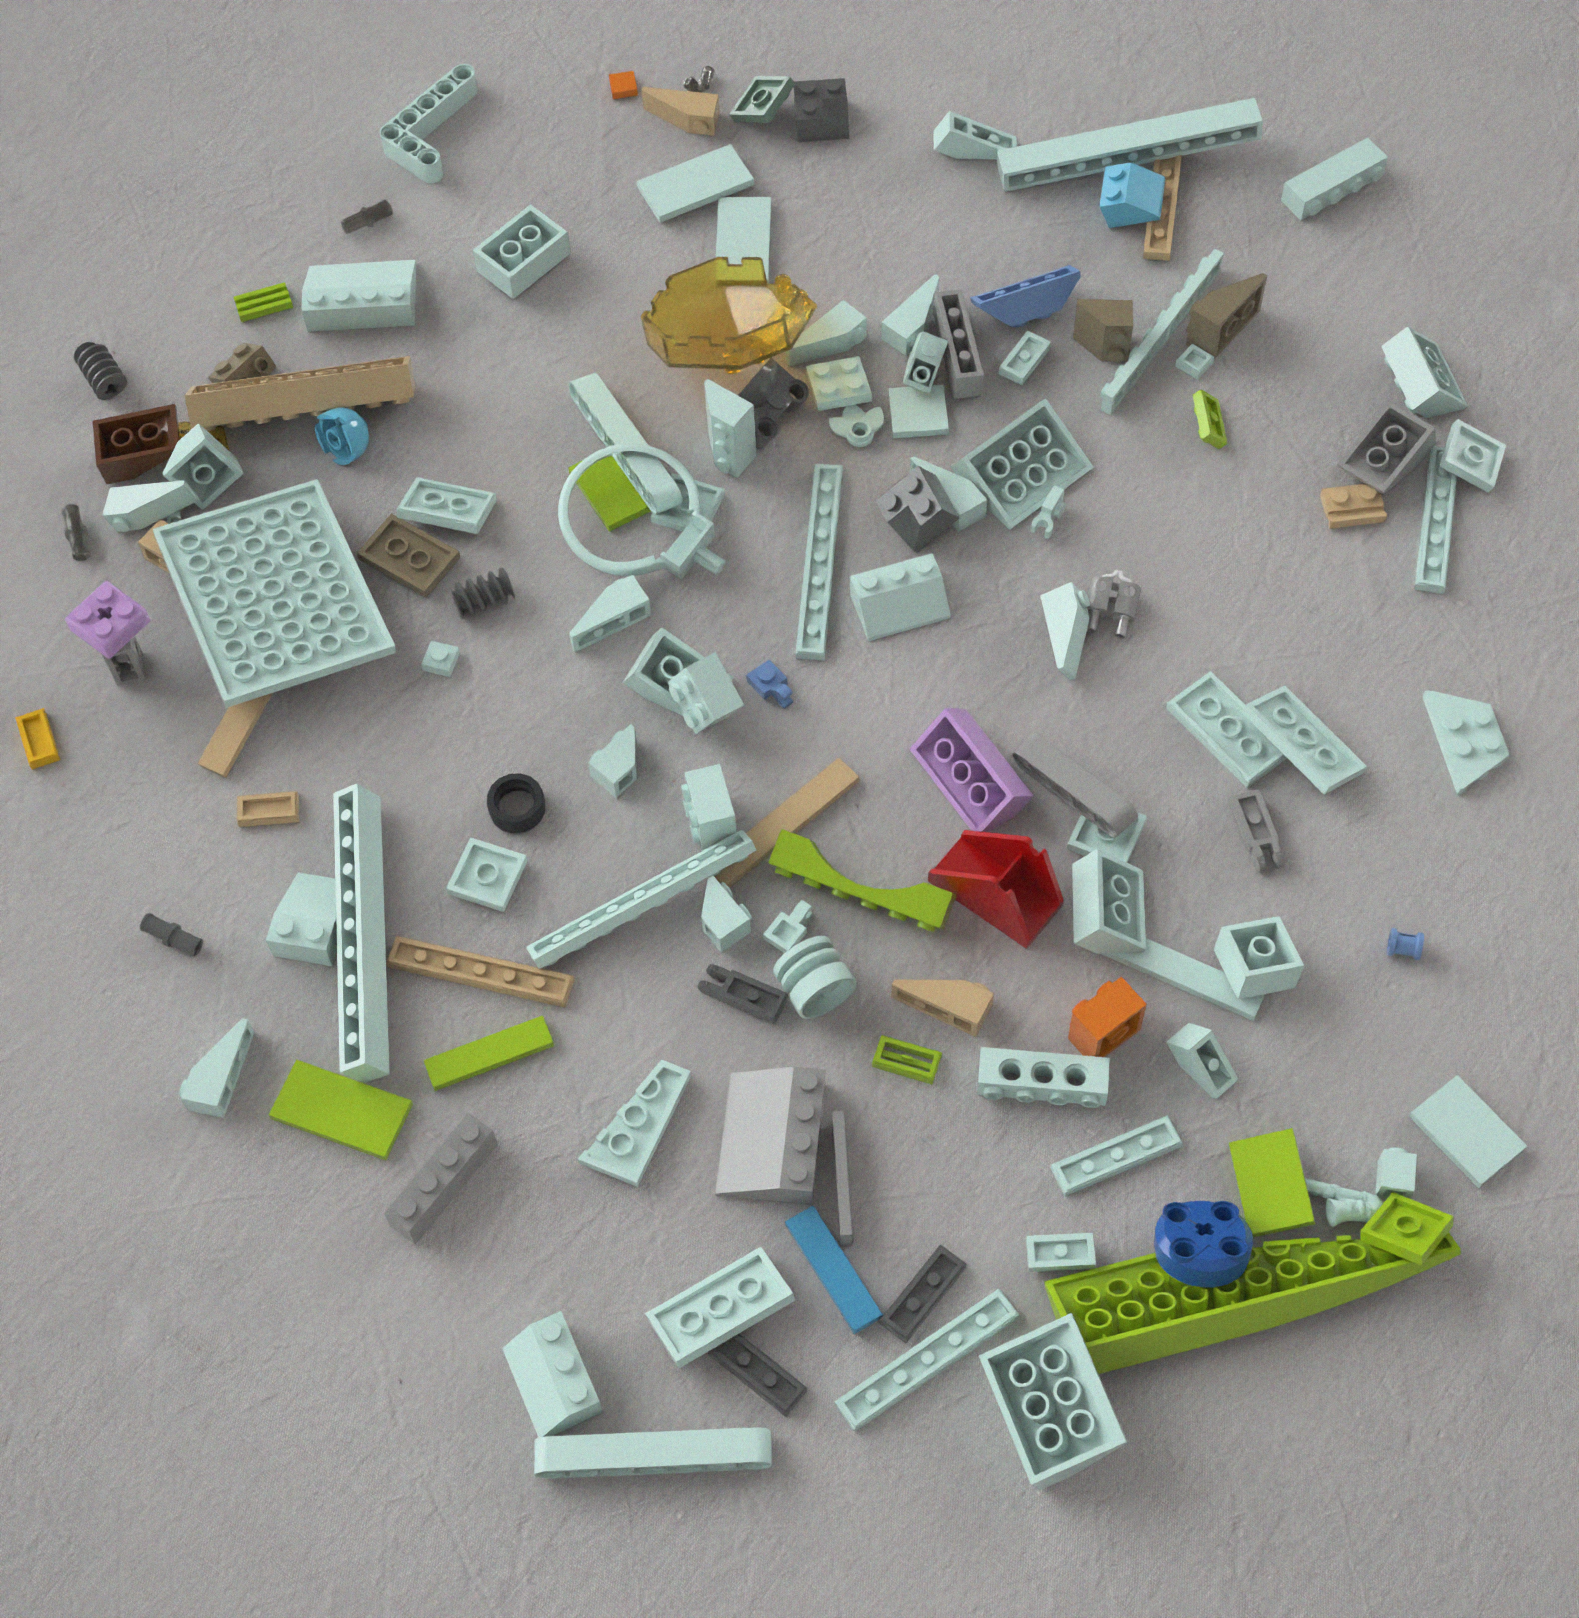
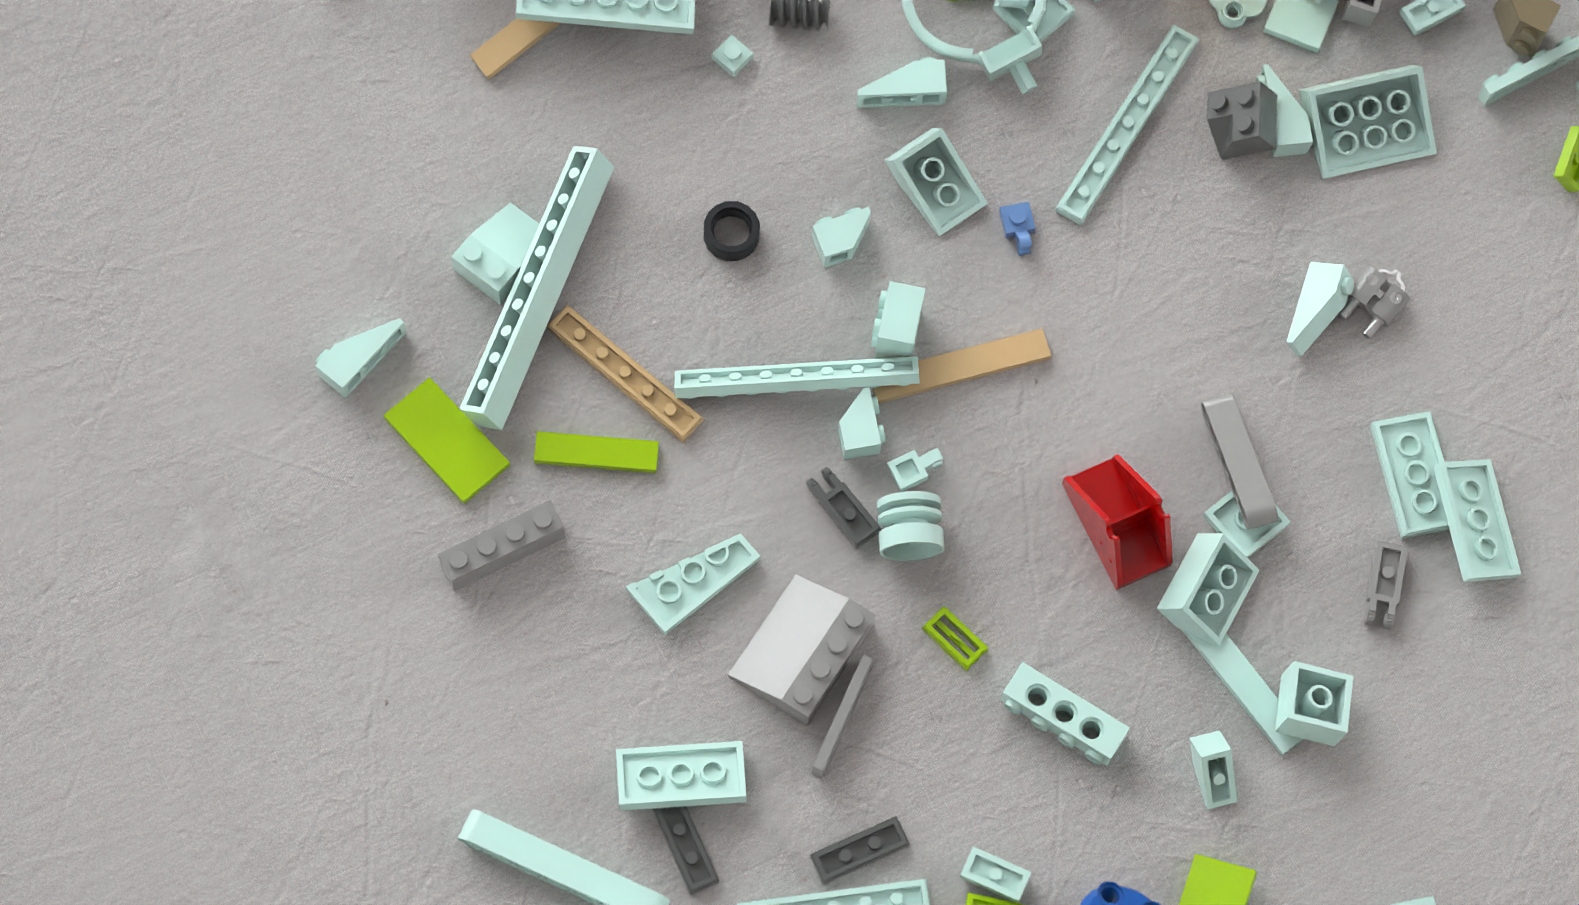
camera: 20 degrees right, 10 degrees up
(171, 934) = (374, 208): dark grey pin -> none
(268, 809) = (511, 128): tan tile -> none
(486, 874) = (673, 286): light aqua plate -> none
(551, 1376) = (512, 763): light aqua slope -> none
(705, 693) = (948, 211): light aqua brick -> none
(833, 1270) = (794, 791): dark azure tile -> none
(899, 597) = (1180, 199): light aqua slope -> none
(921, 901) = (960, 411): lime arch -> none
(950, 1001) = (1022, 607): tan slope -> none
(970, 771) = (1154, 400): lavender slope -> none
(1050, 509) = (1372, 178): light aqua plate -> none
(1106, 1019) = (1146, 692): orange brick -> none
(1116, 1155) = (1091, 815): light aqua tile -> none
(1405, 944) = (1457, 756): medium blue bush -> none

